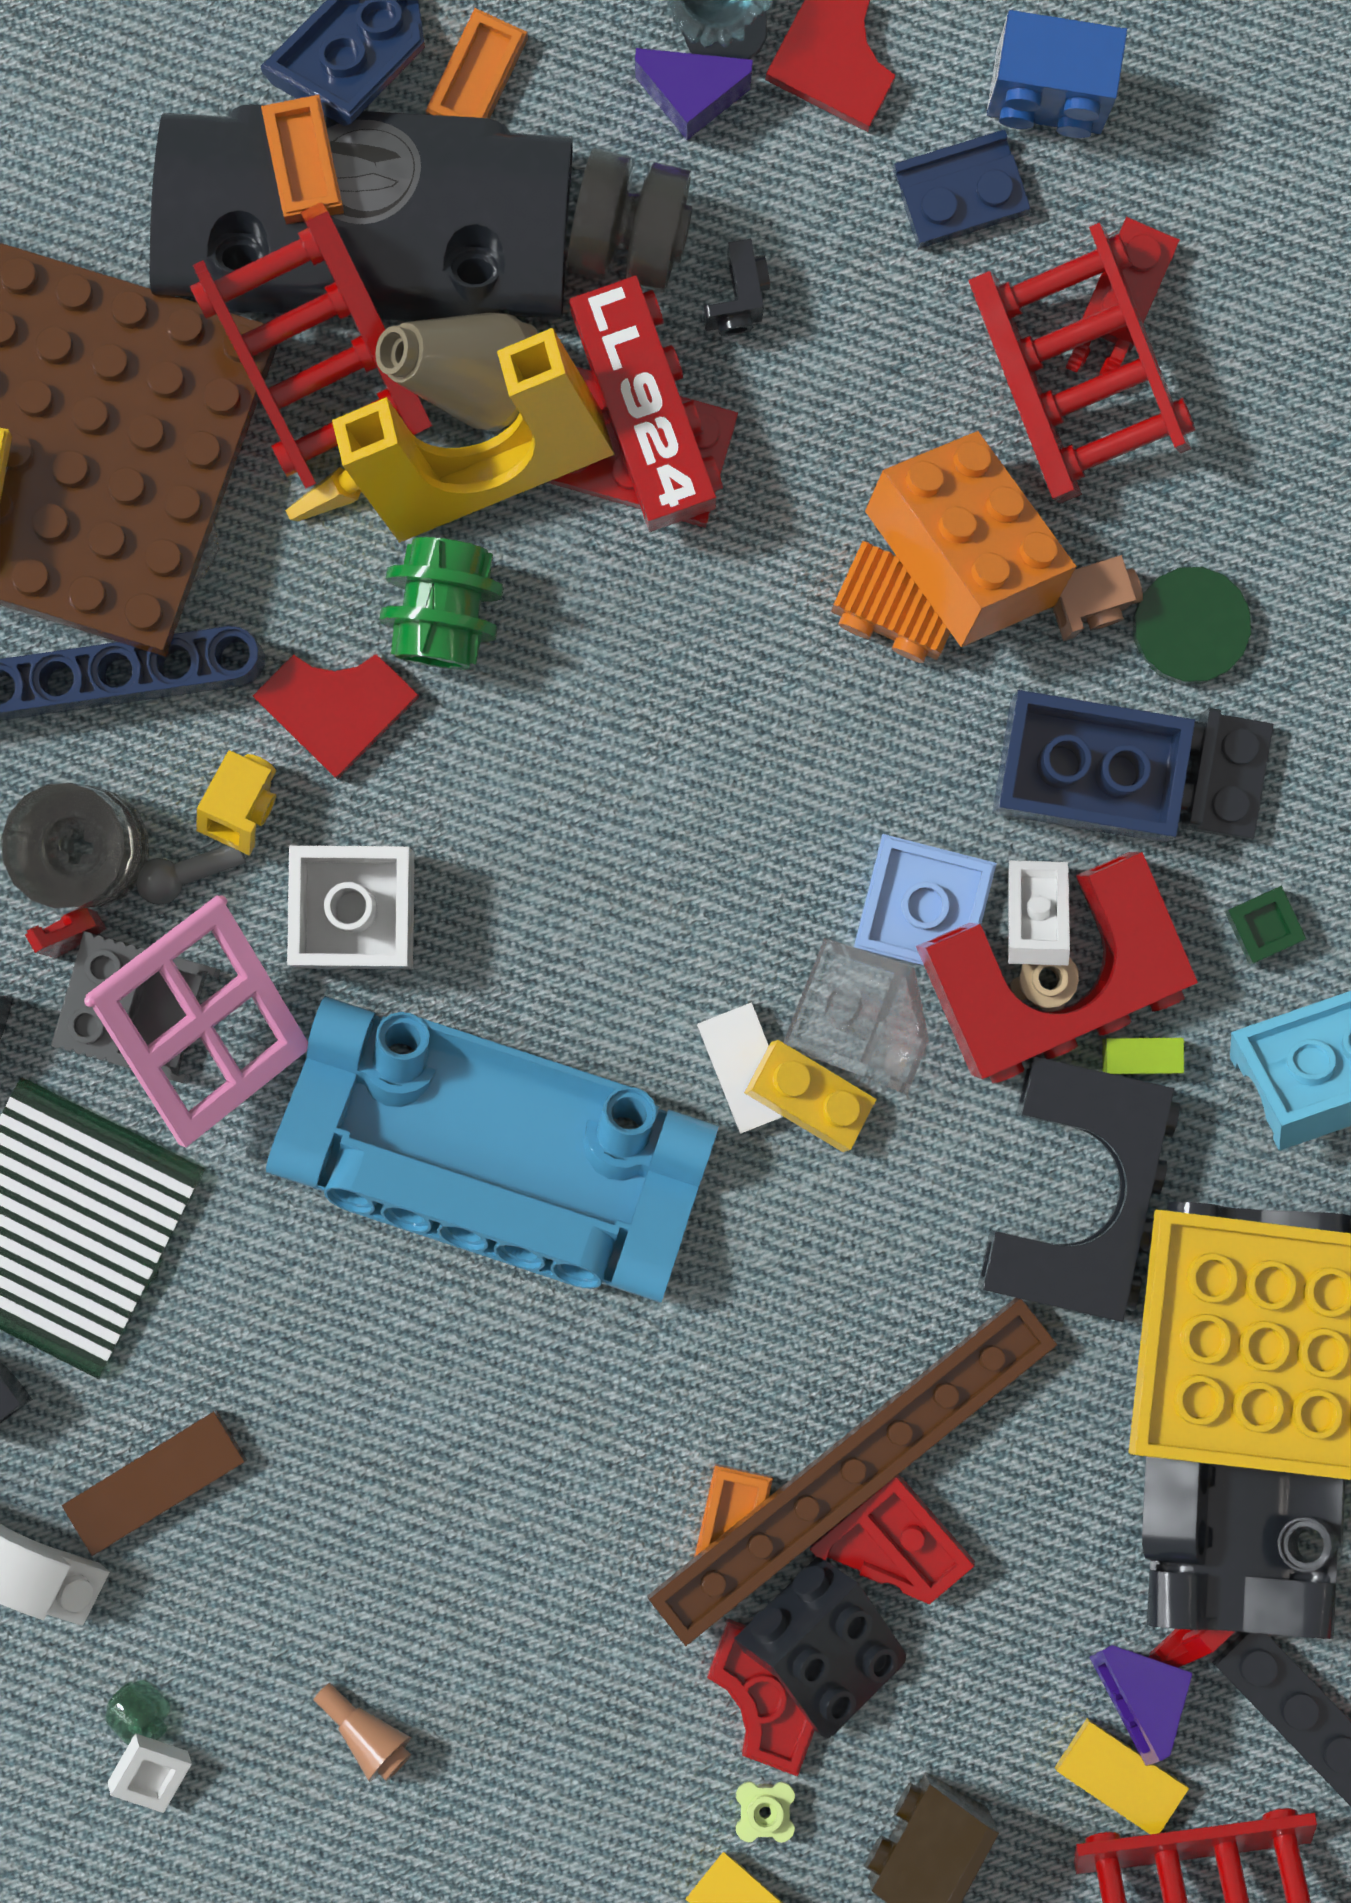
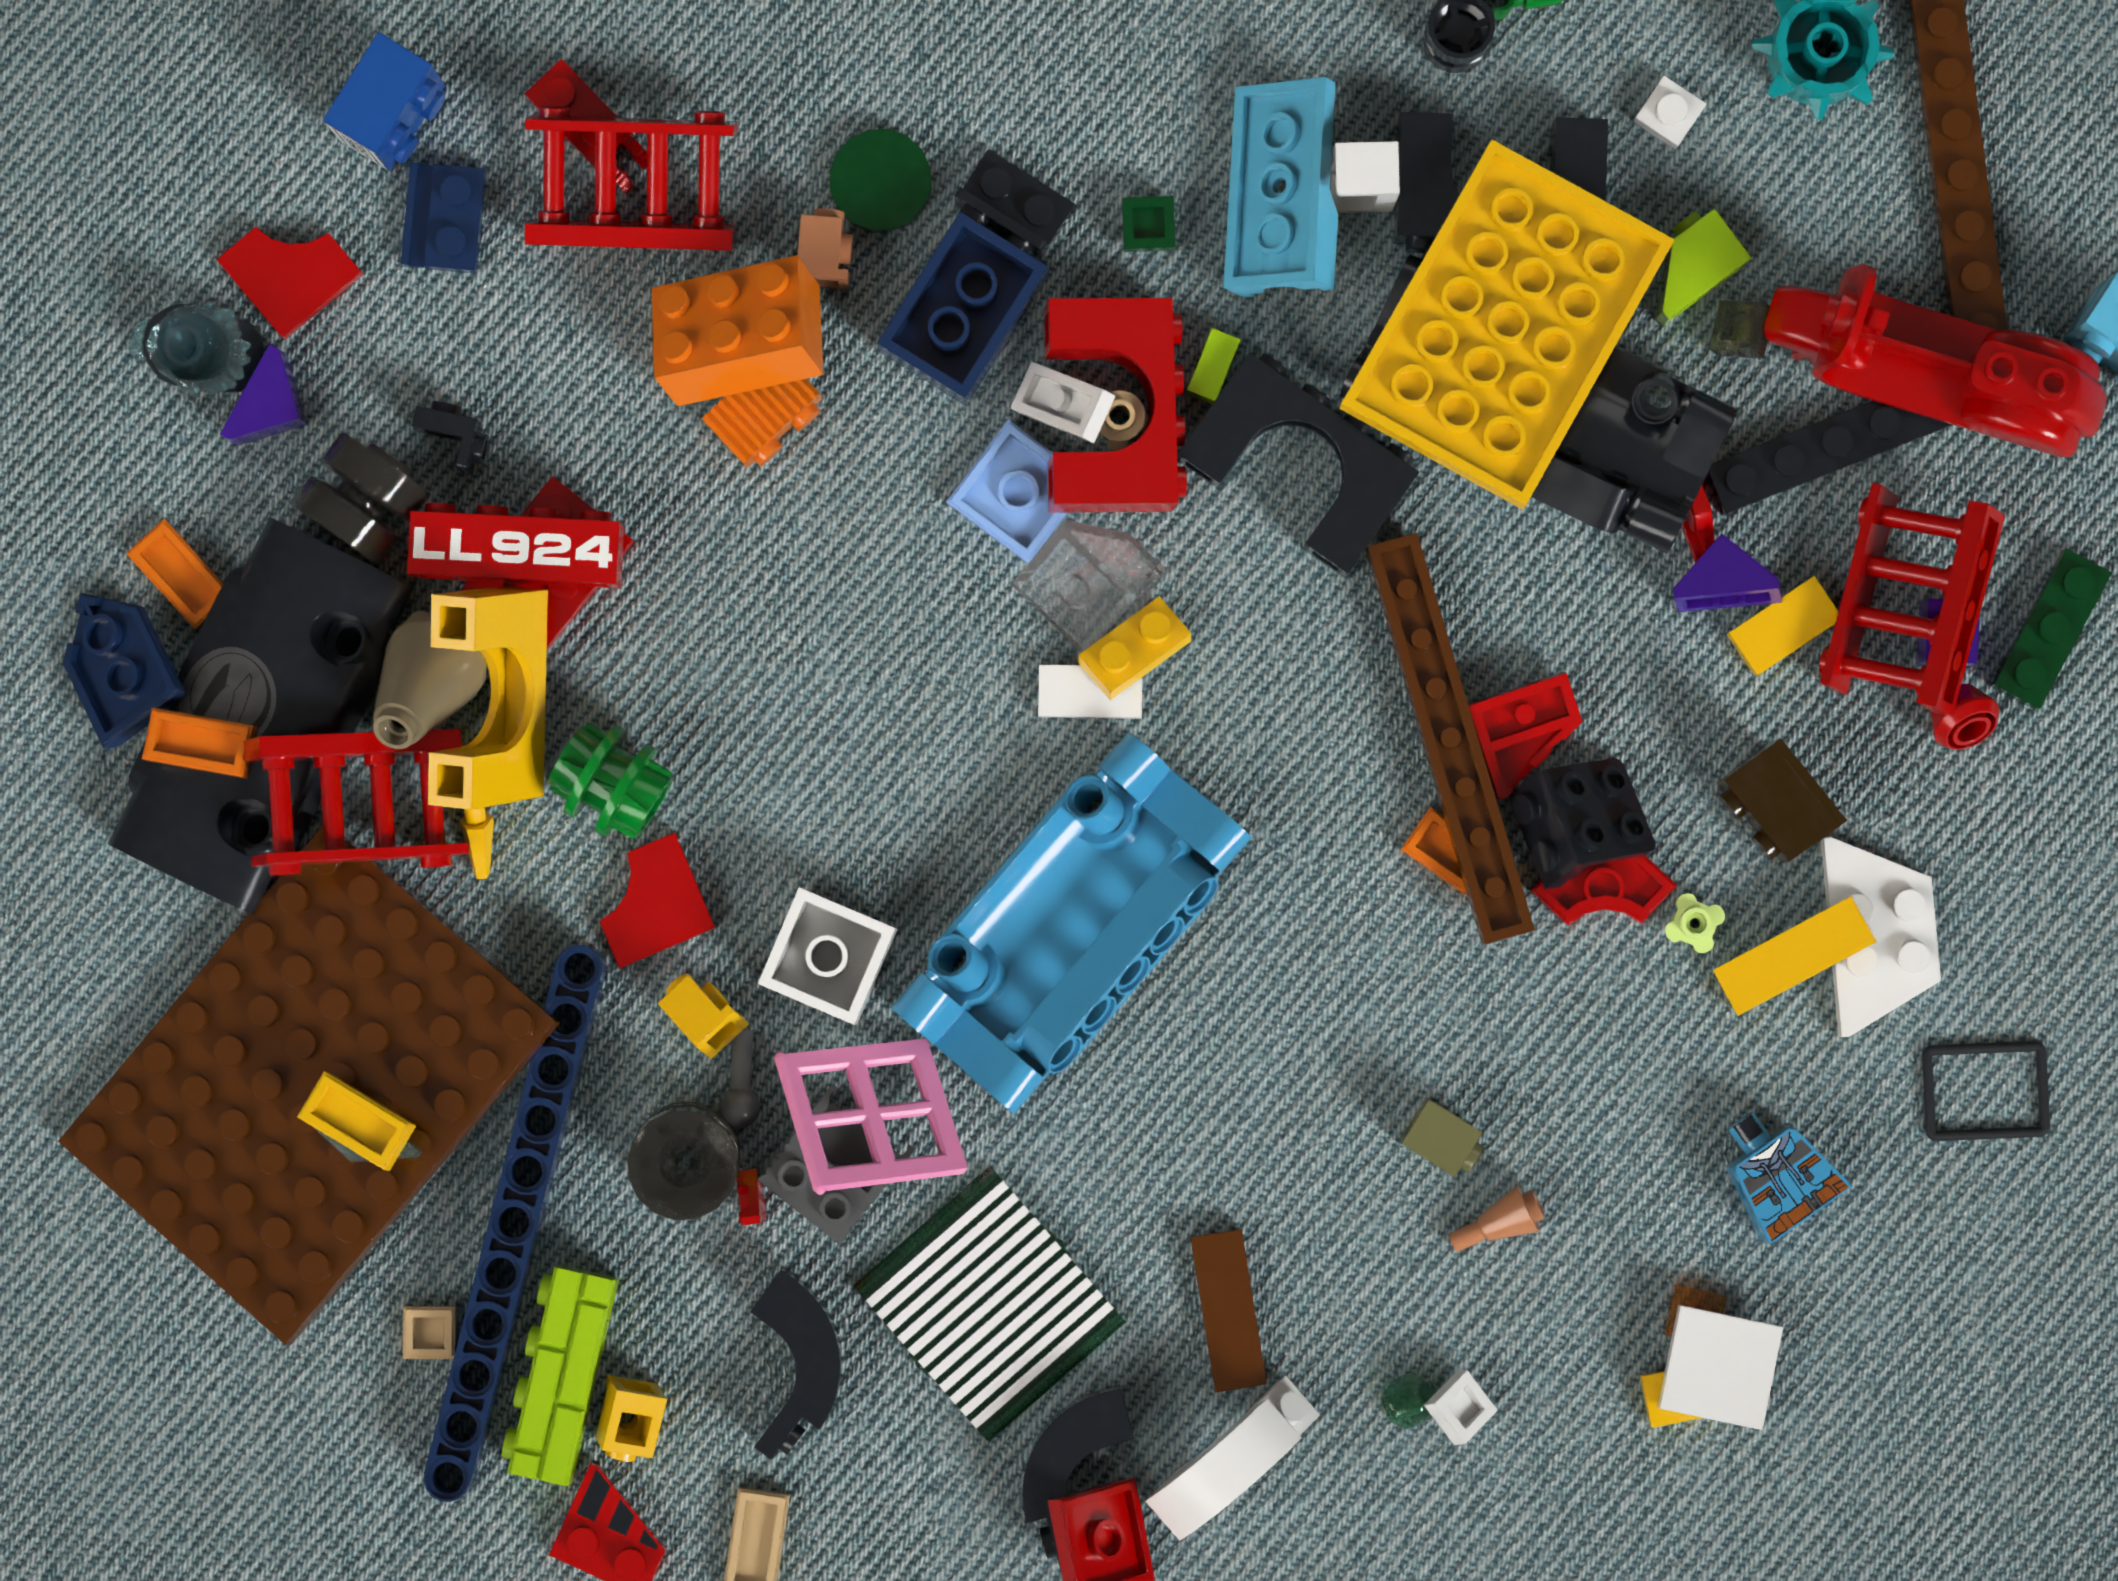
camera: 65 degrees left, 0 degrees up
(425, 1636) = (1442, 1138): none -> olive brick

